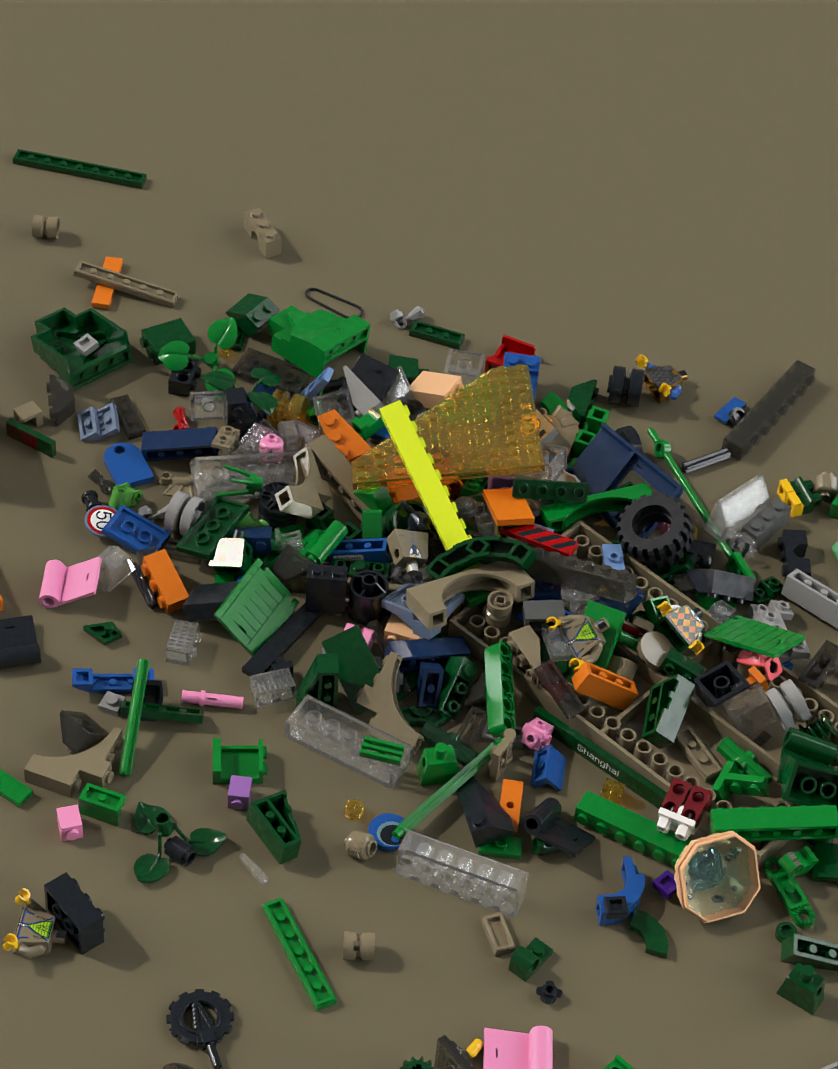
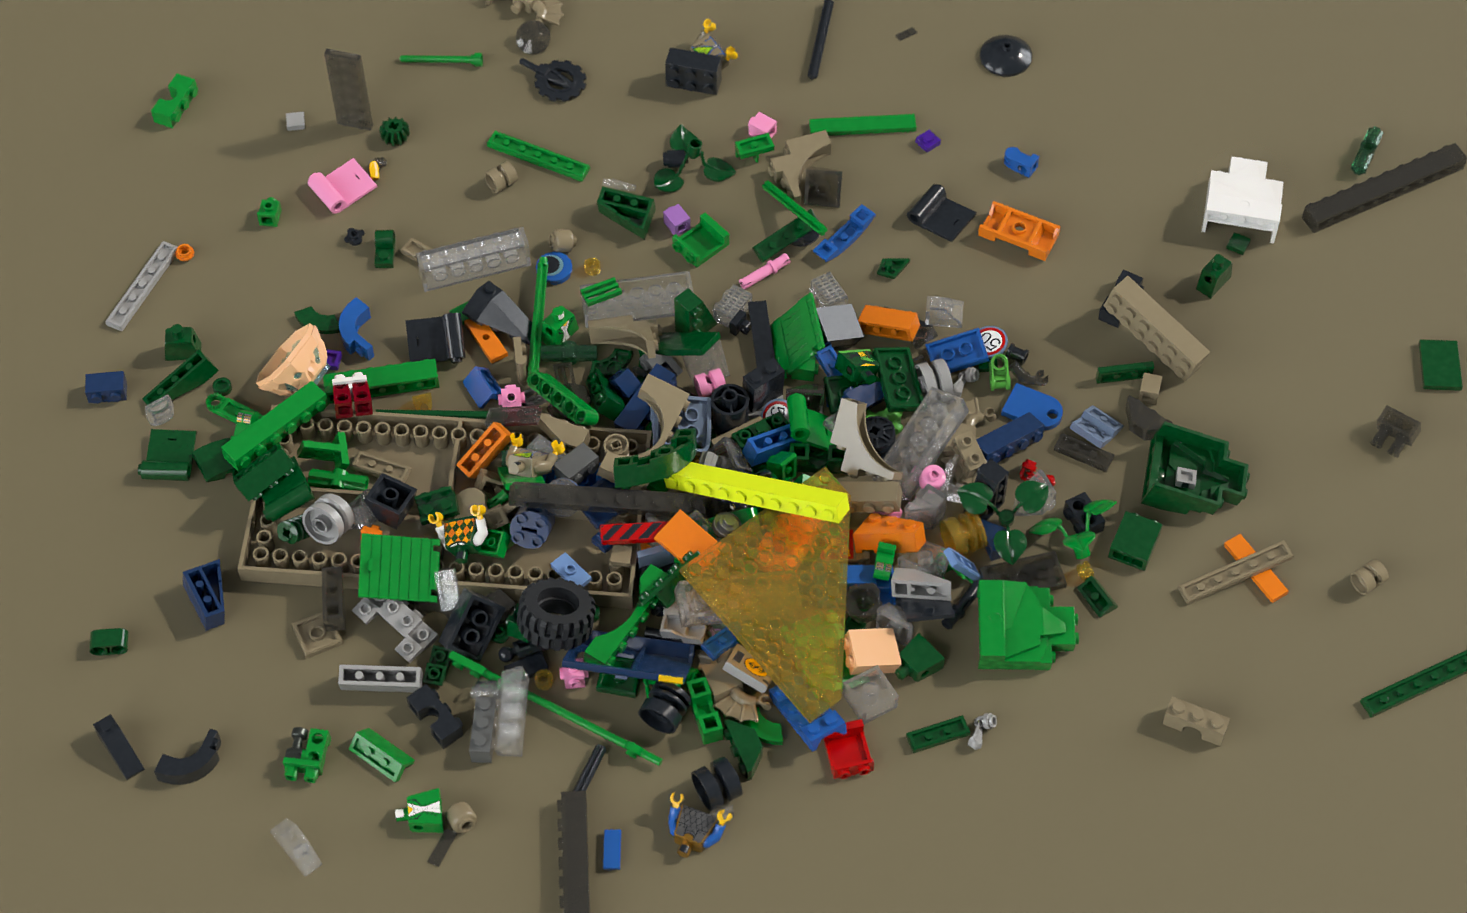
camera: 145 degrees right, 10 degrees up
(69, 583) = (956, 276): bright pink door -> none
(111, 703) = (831, 223): light grey plate -> none
(252, 313) = (1100, 615): dark green slope -> none
(253, 484) = (903, 421): green plant -> none
(324, 292) = (1060, 710): black piece -> none
(408, 549) = (731, 451): dark tan torso -> none
(615, 907) = (348, 303): black tile -> none
(666, 710) = (424, 465): dark green wedge -> none
(736, 415) = (598, 842): black tile -> none
(798, 496) = (480, 786): hips -> none

